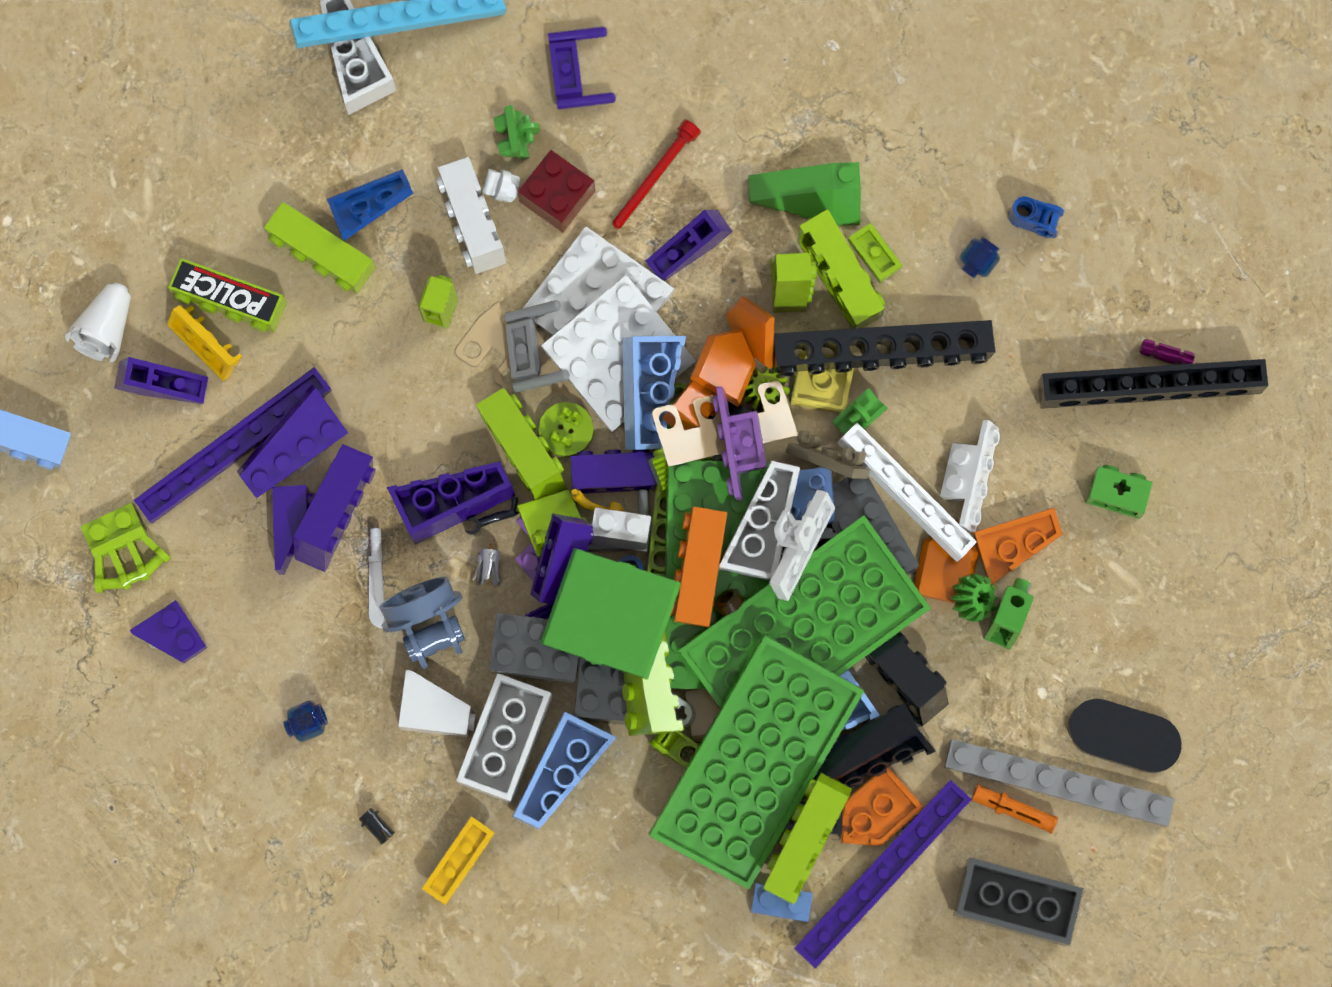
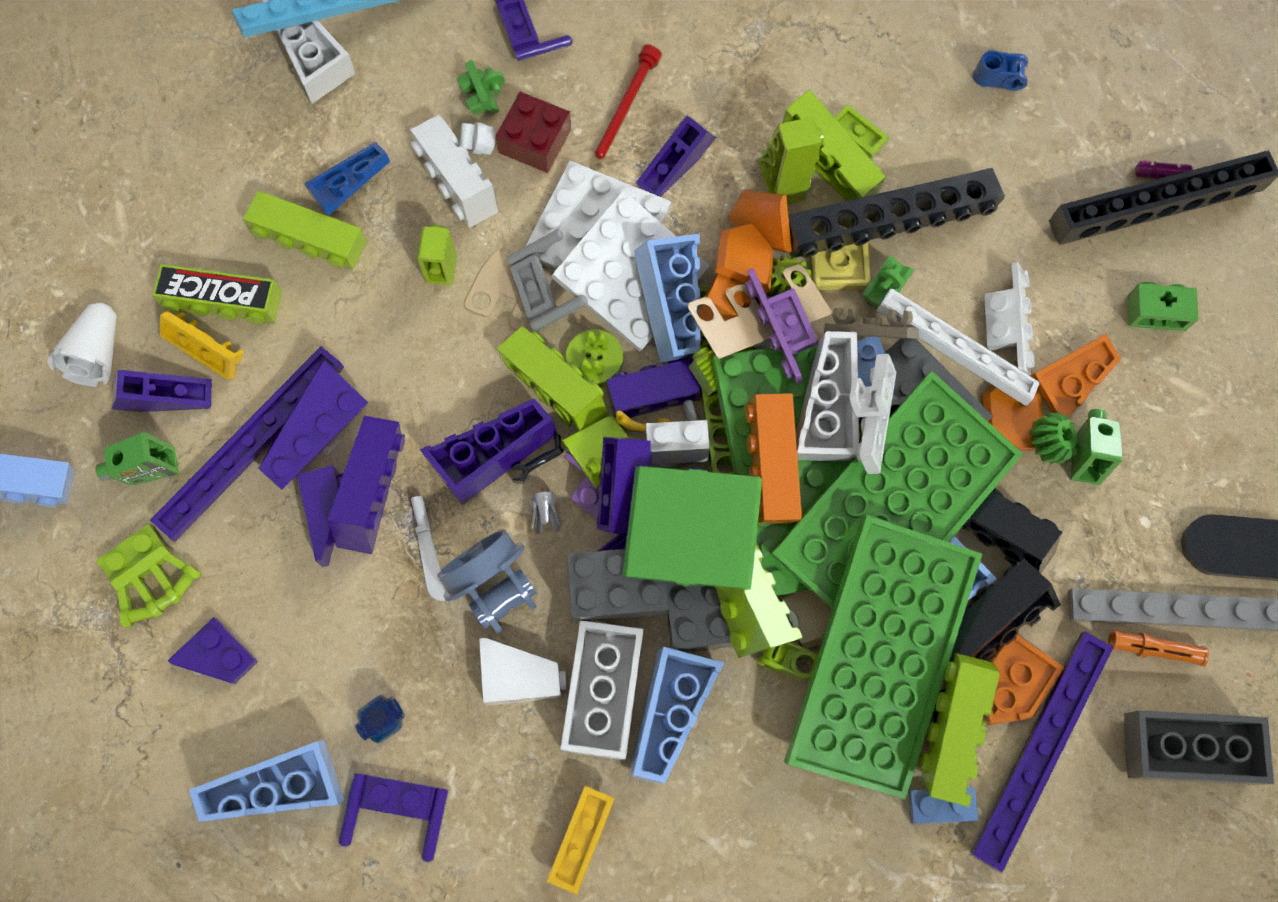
camera: 15 degrees left, 5 degrees down
(131, 443) = (138, 460): none -> bright green torso
(212, 757) = (282, 783): none -> light blue wedge
(307, 793) = (398, 799): none -> dark purple plate
(374, 824) = (479, 817): black pin -> none
(728, 602) = (813, 490): dark brown tile -> none
(811, 191) = (780, 85): bright green wedge -> none
(979, 257) = (961, 116): clear blue head -> none

